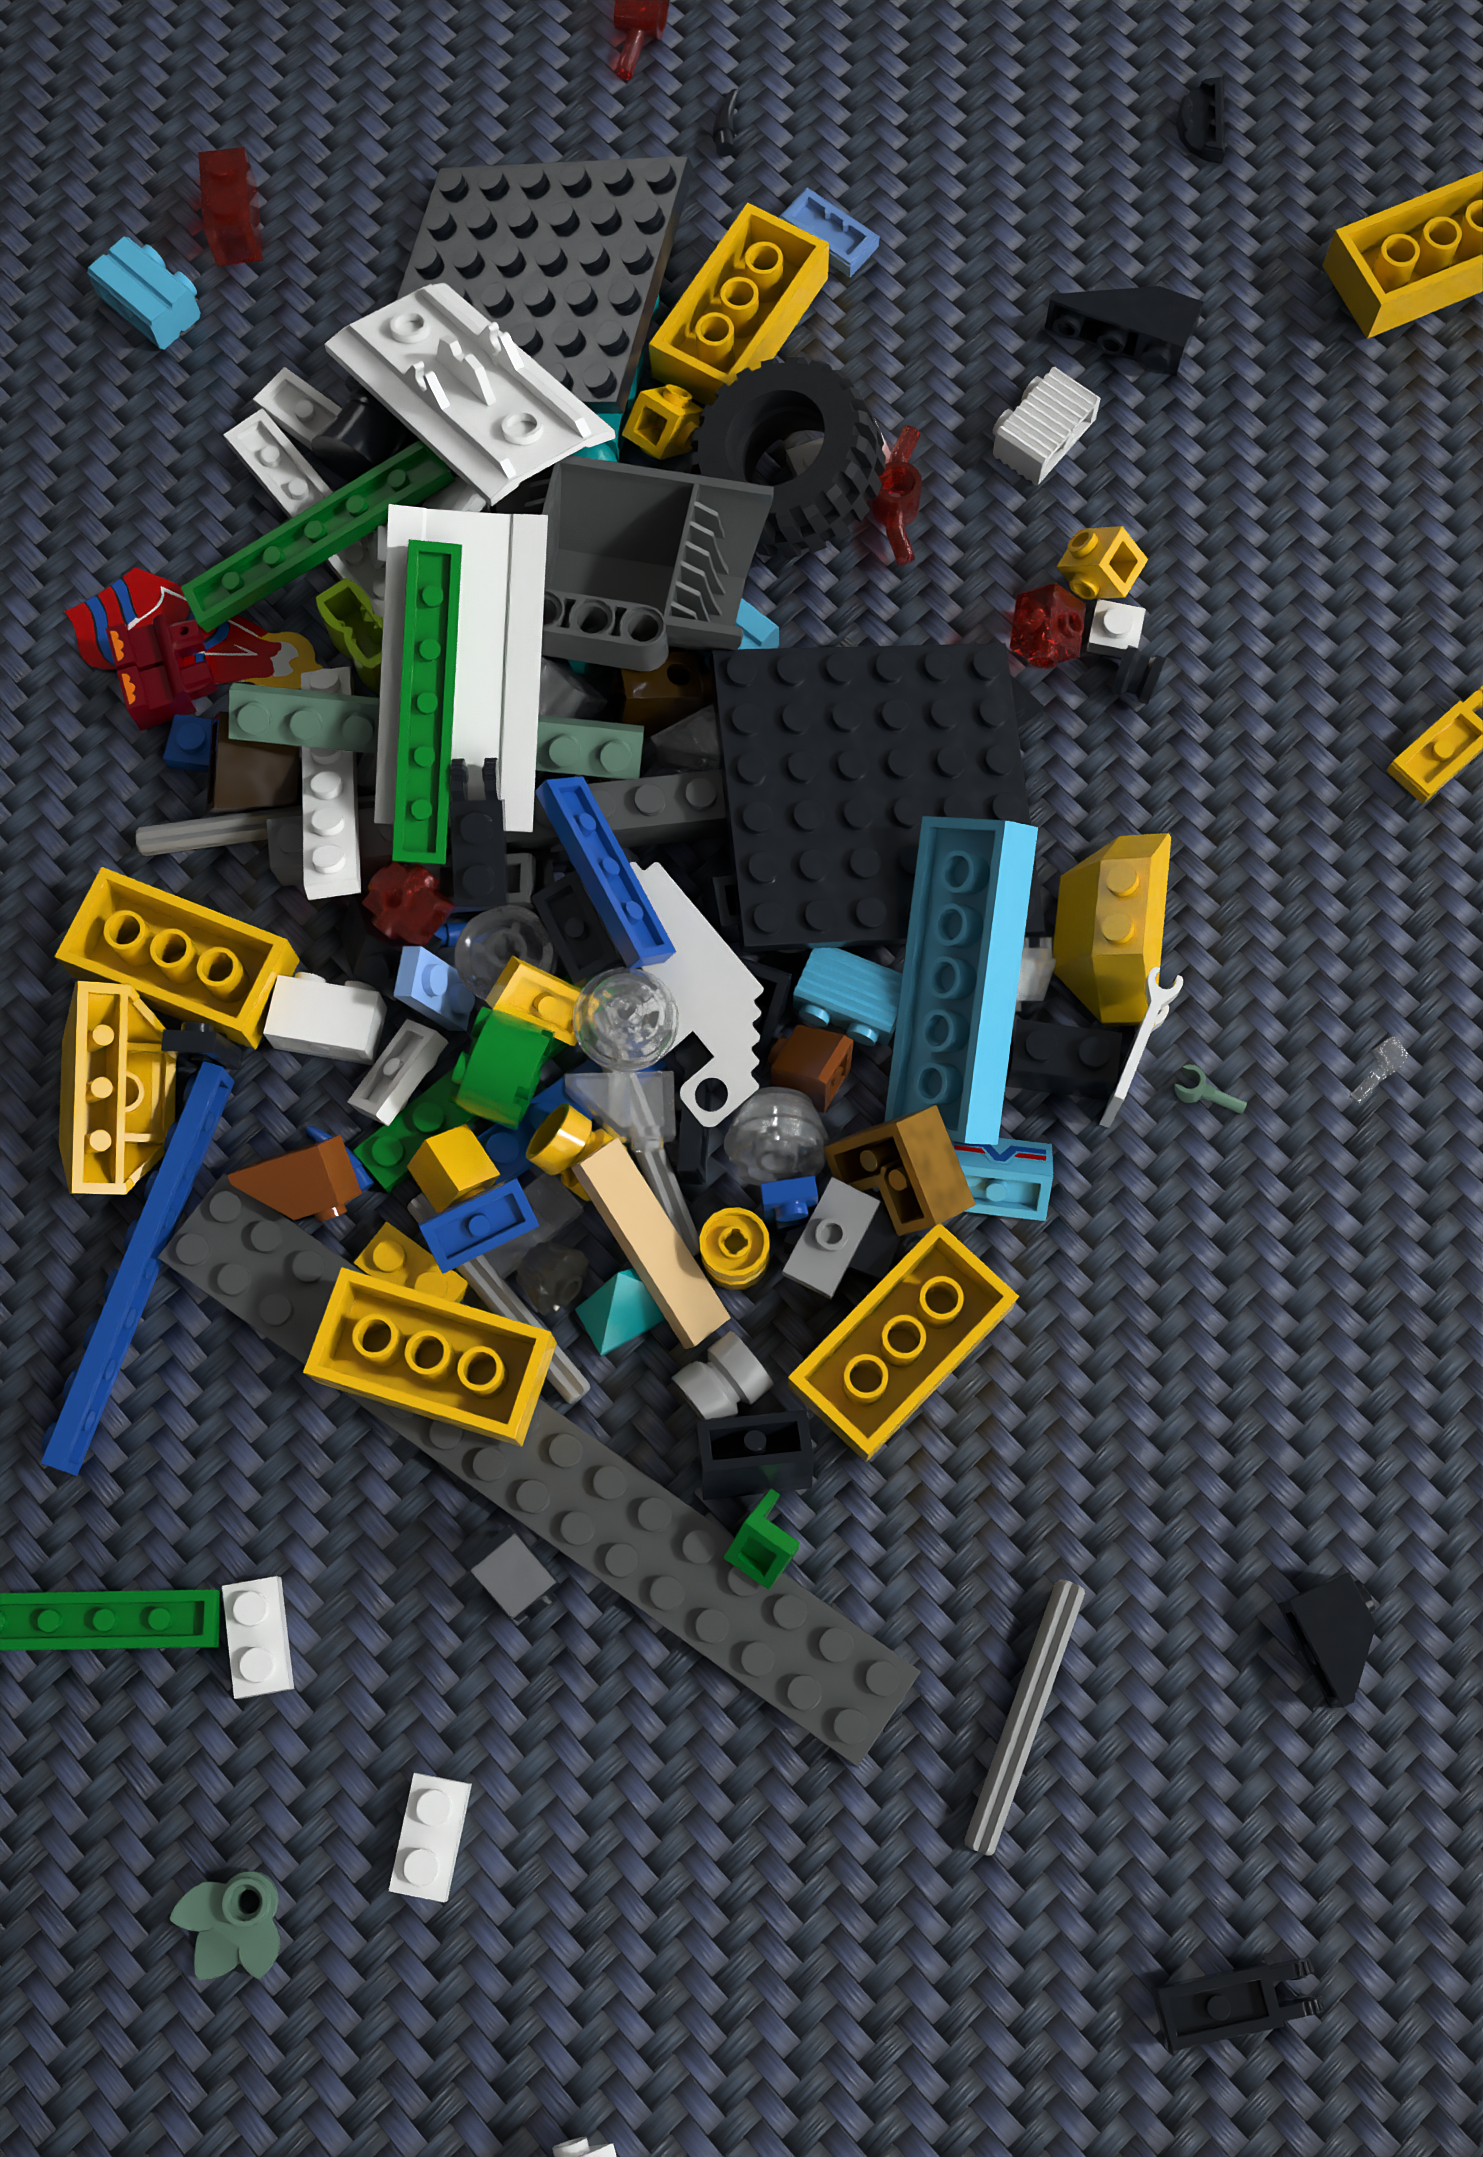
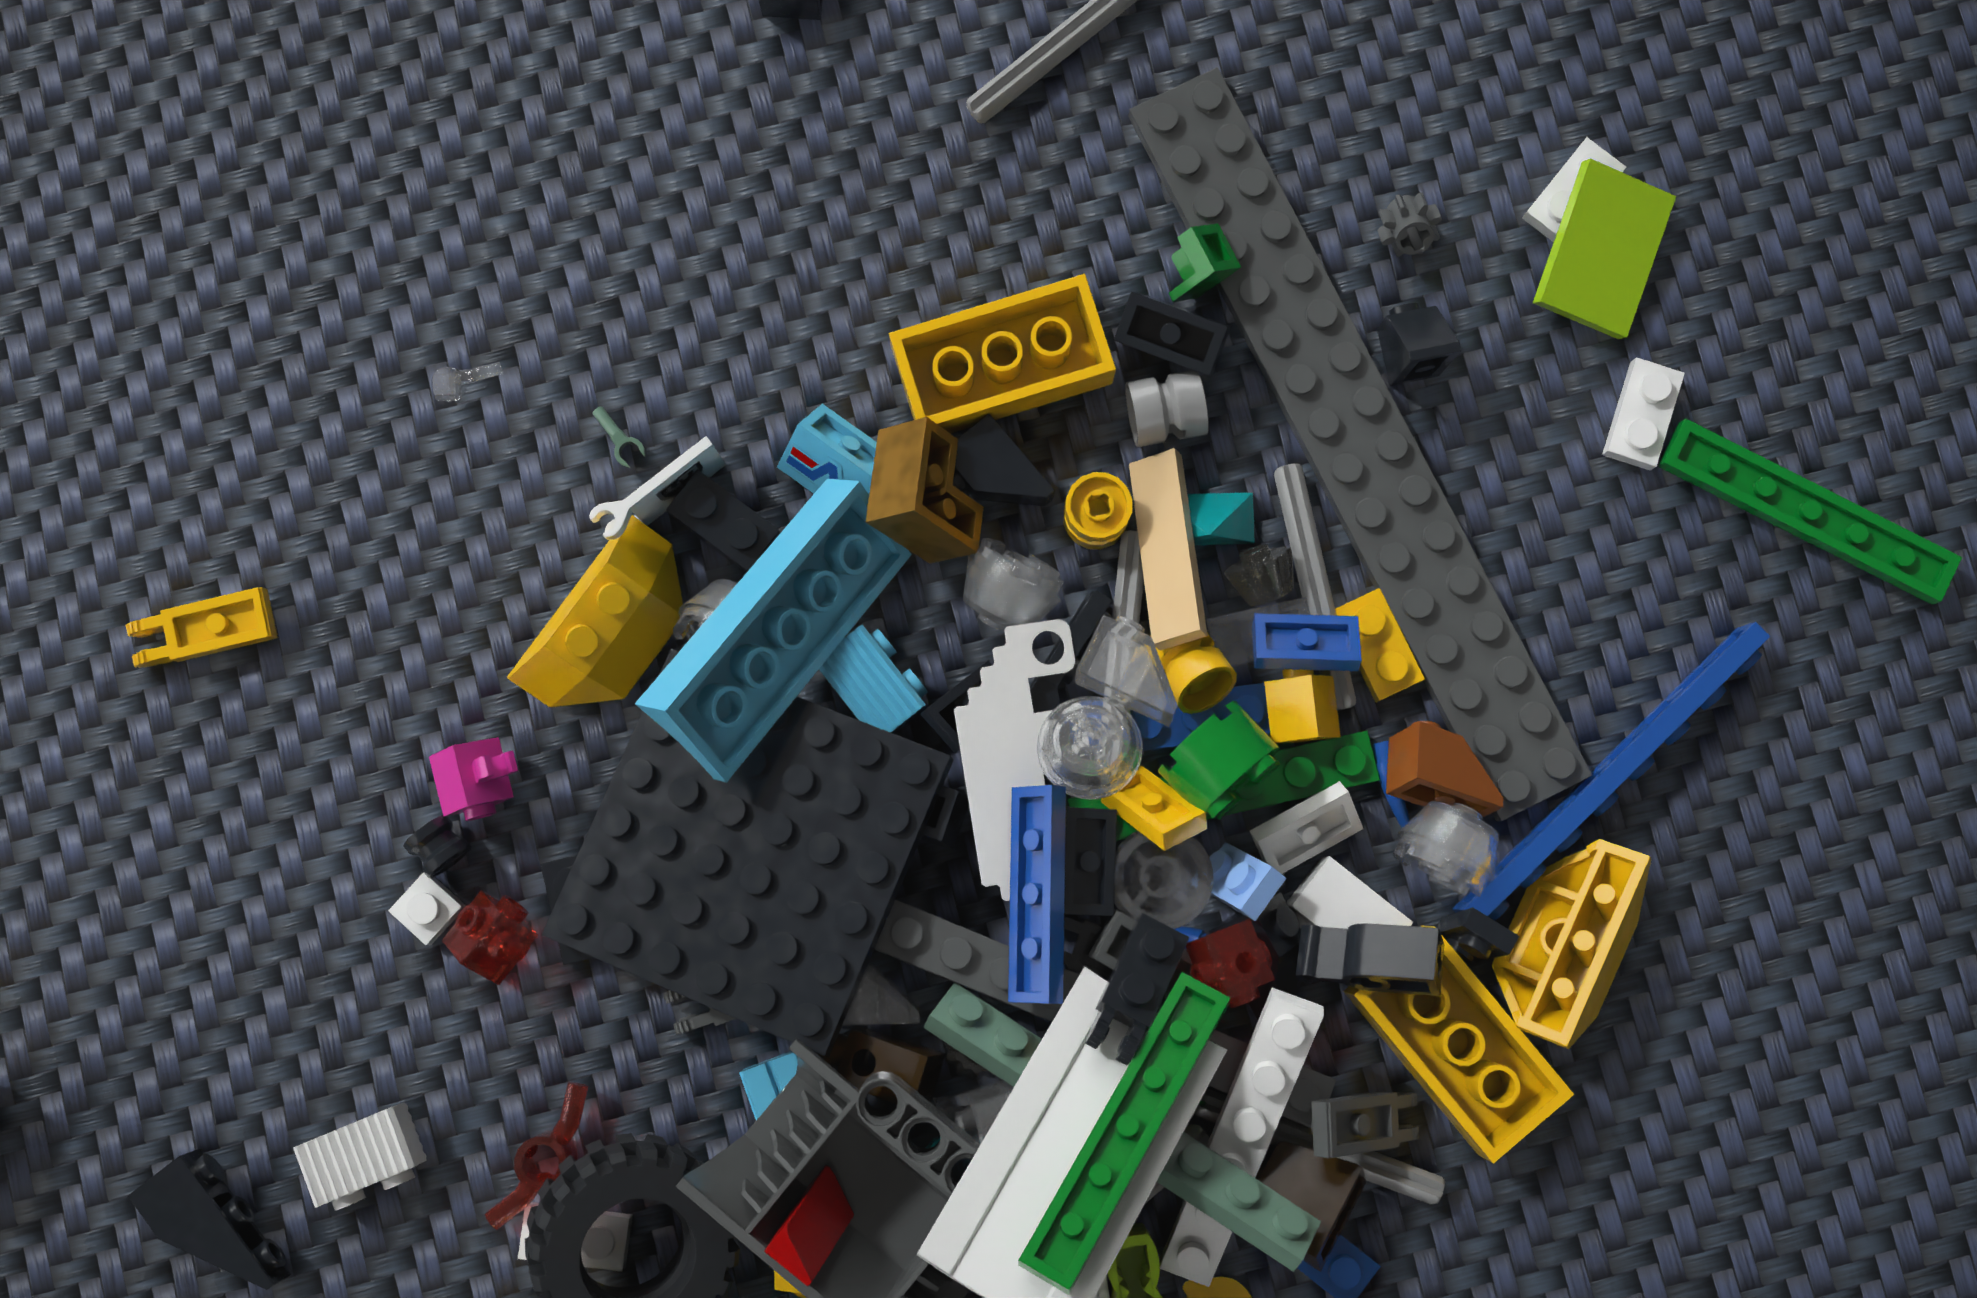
camera: 155 degrees left, 10 degrees up
(229, 846) = (1361, 1123): none -> dark grey hinge
(229, 1931) = (1761, 205): sand green plate -> none
(259, 1114) = (1450, 847): none -> clear cone
(285, 971) = (1373, 957): none -> piece
(371, 1783) = (1604, 249): none -> lime tile
(431, 1356) = (1405, 543): yellow brick -> none
(580, 1699) = (1409, 224): none -> dark grey gear
(647, 522) = (812, 1228): none -> red slope
(788, 1203) = (1032, 517): blue plate -> none
(812, 1063) = (945, 634): dark orange slope -> none
(831, 1238) = (1015, 467): light grey plate -> none
(1102, 563) = (401, 973): yellow brick -> none
(1144, 737) = (473, 778): none -> dark pink brick

